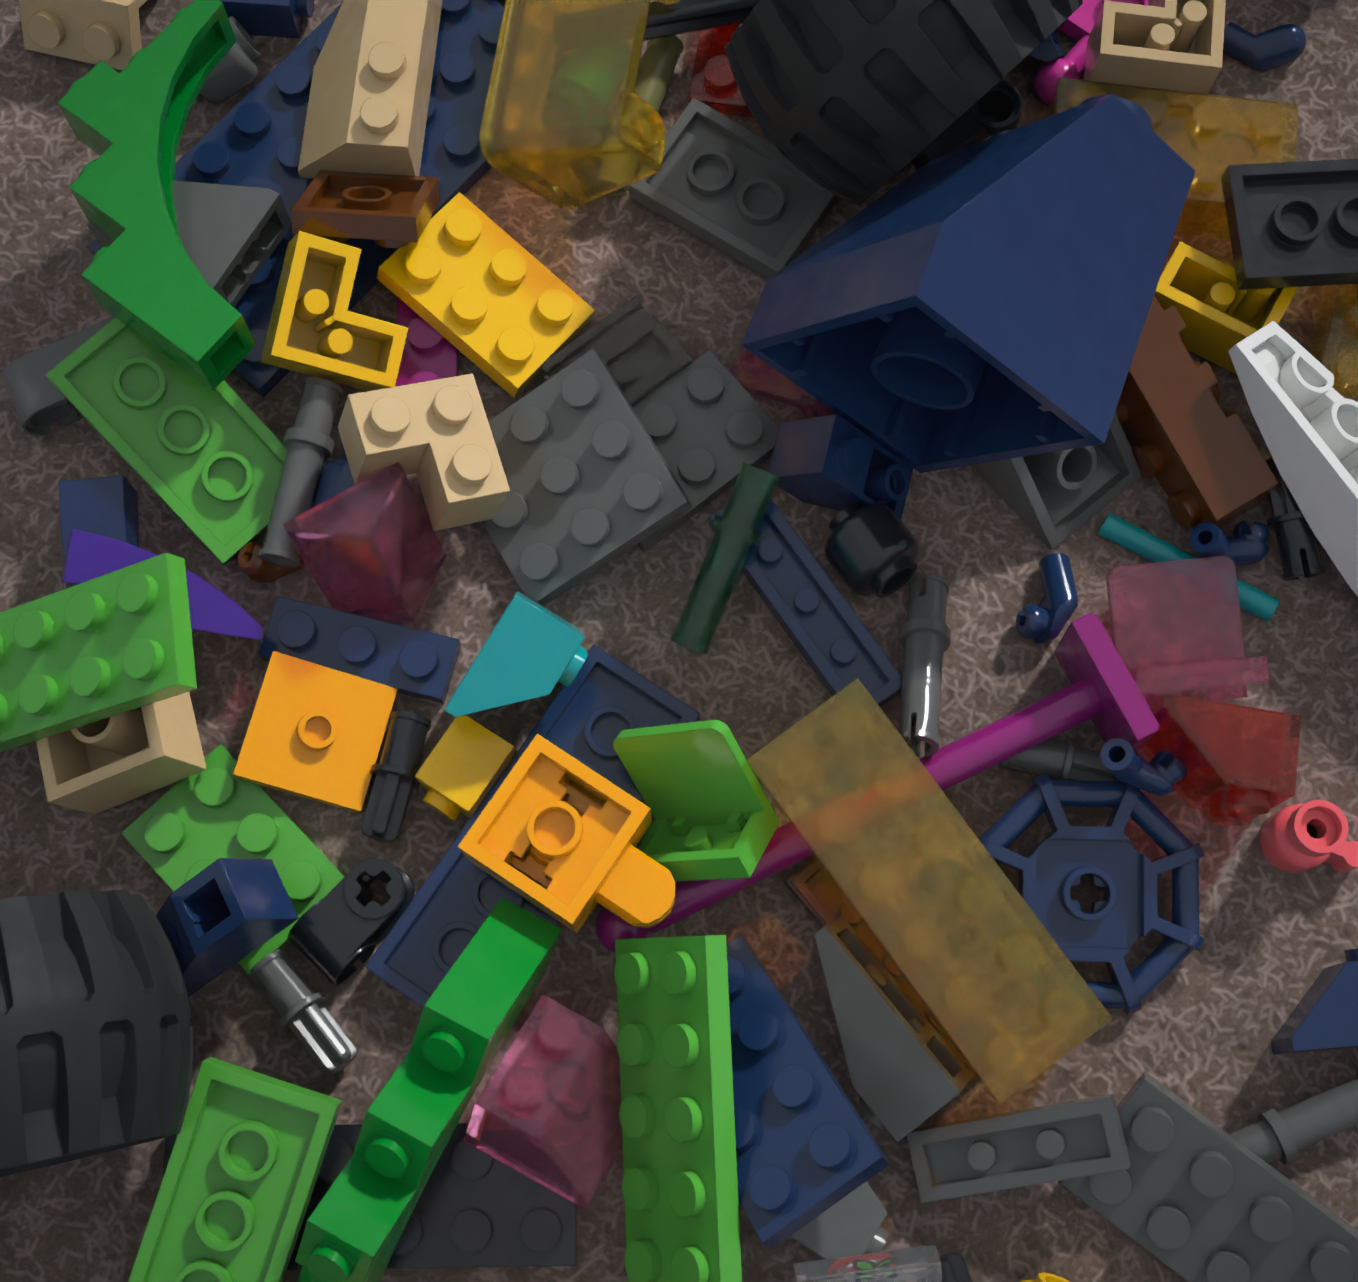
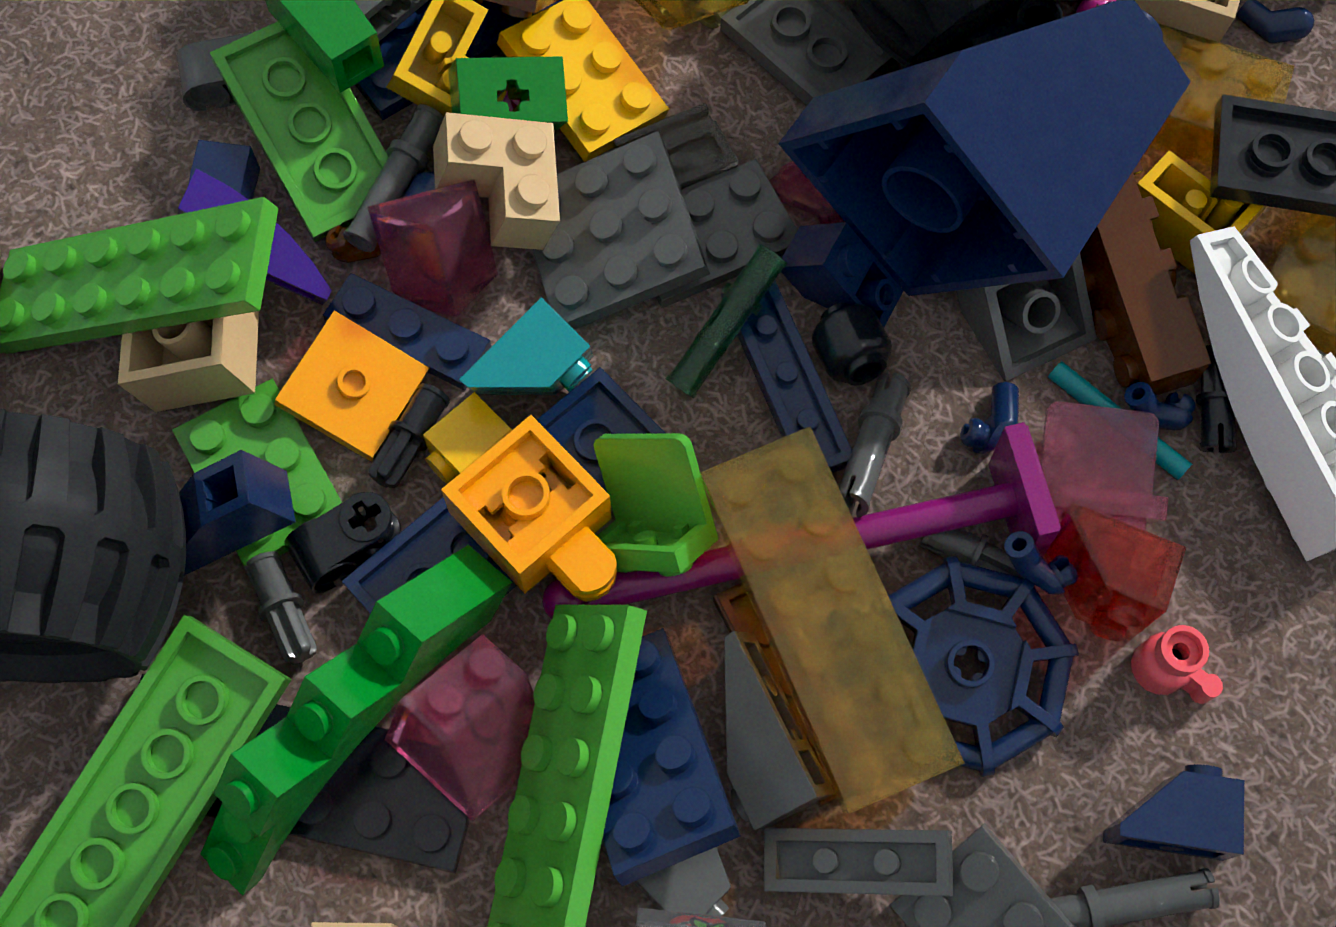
camera: 10 degrees right, 5 degrees down
(439, 326) = (531, 80): none -> green brick

